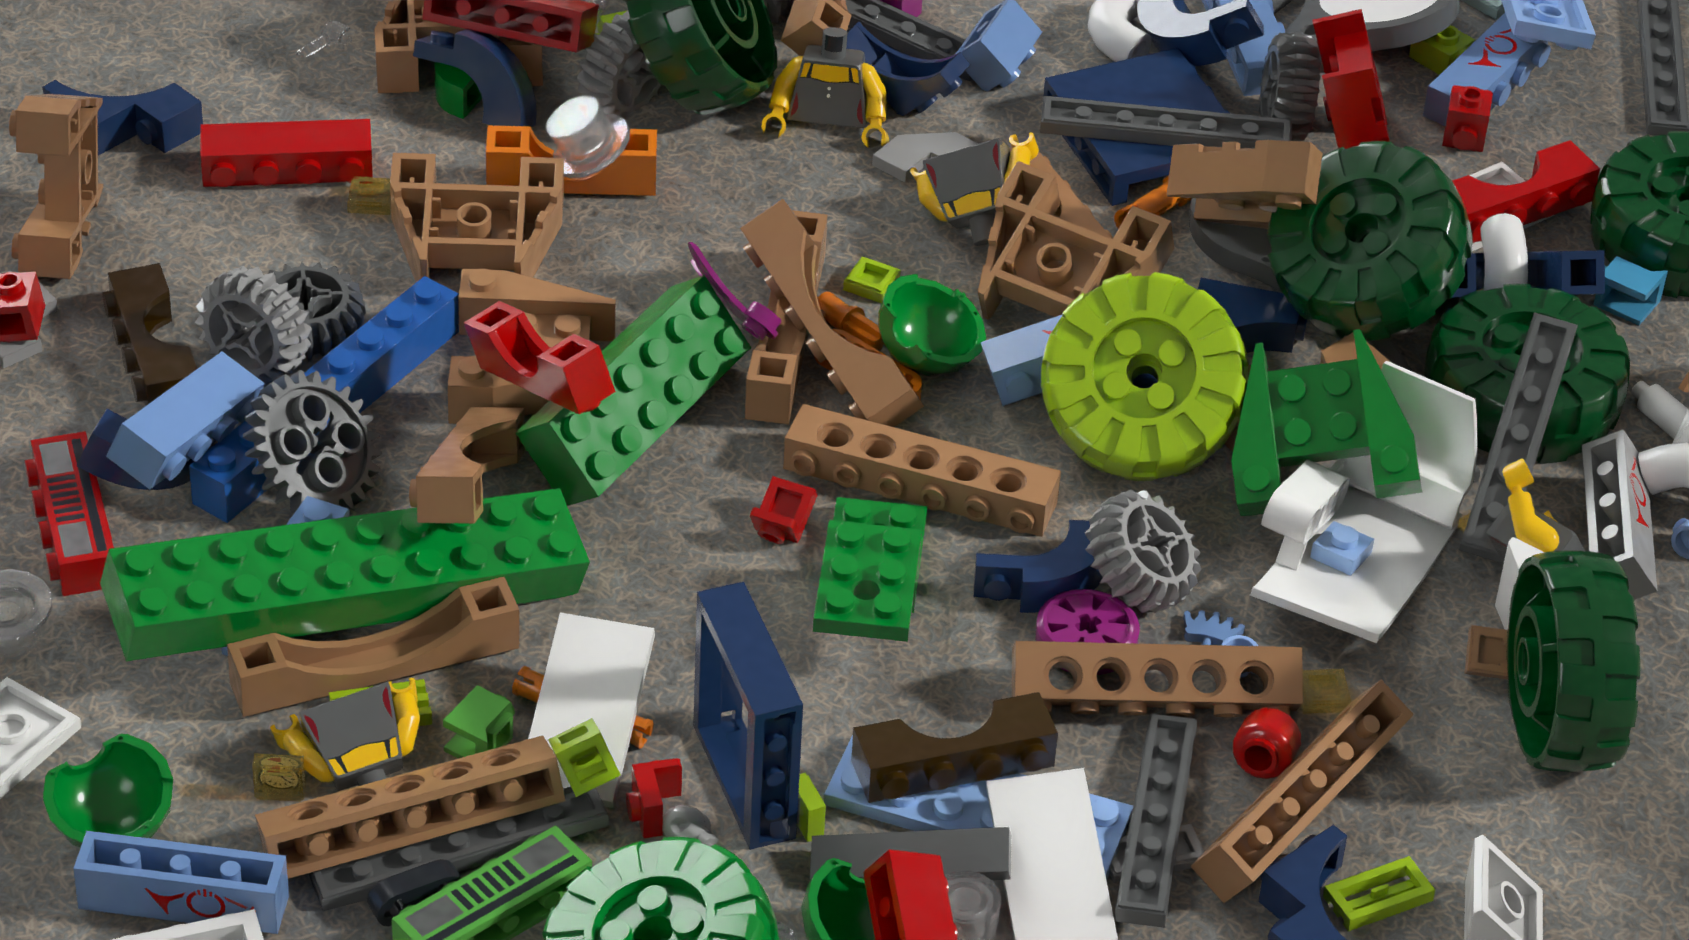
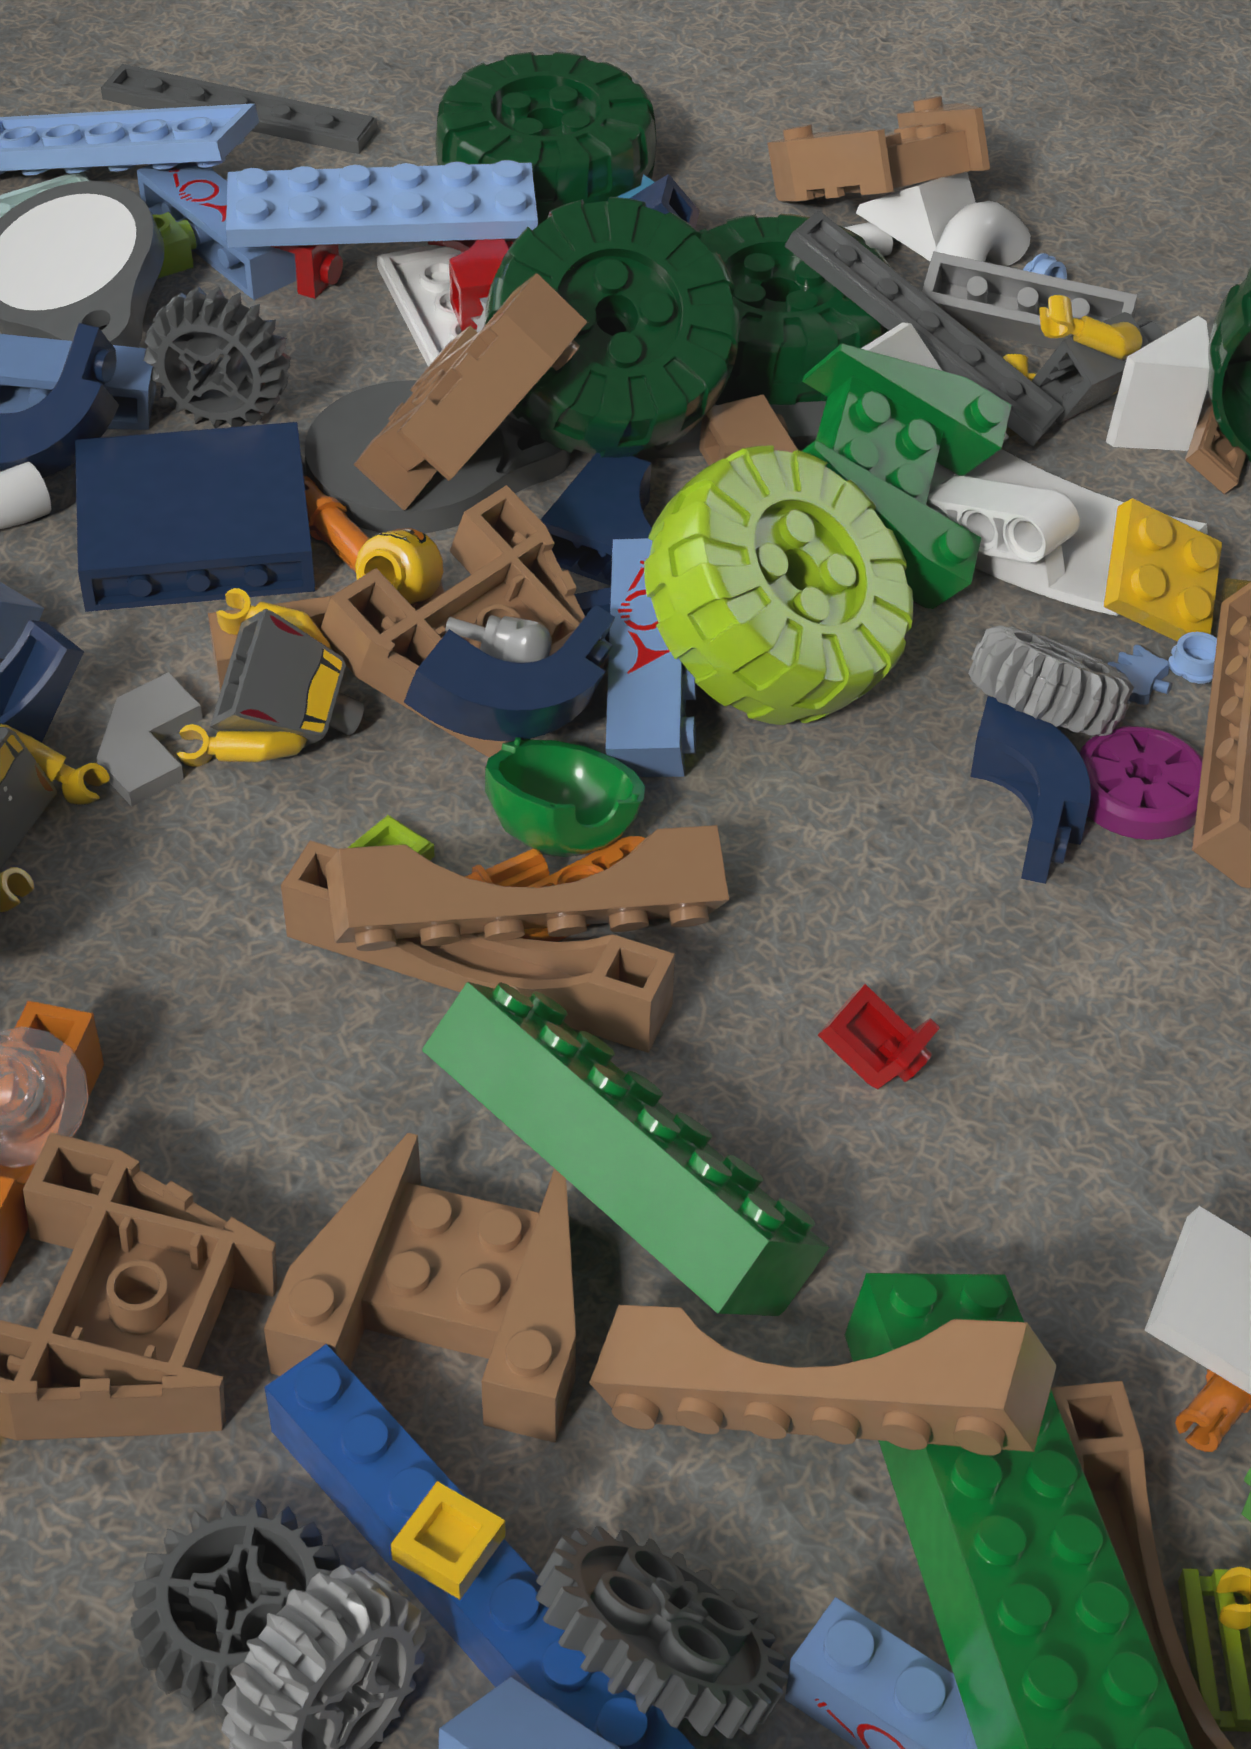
camera: 75 degrees left, 5 degrees up
(332, 341) = (448, 1540): none -> yellow plate
(565, 374) = (582, 1256): red arch -> none
(756, 320) = (519, 963): magenta plant -> none
(870, 569) = (1047, 946): green bracket -> none
(922, 470) = (817, 879): medium nougat brick -> none
(990, 285) = (508, 699): none -> dark blue arch
(1027, 261) = (507, 638): none -> light grey piece
(1089, 202) = (406, 560): none -> yellow head
(1157, 124) = (237, 485): dark grey tile -> none
(1300, 605) = (1162, 572): none -> yellow plate
(1350, 80) = (323, 289): red wedge -> none
(1509, 127) = (379, 204): none -> light blue plate

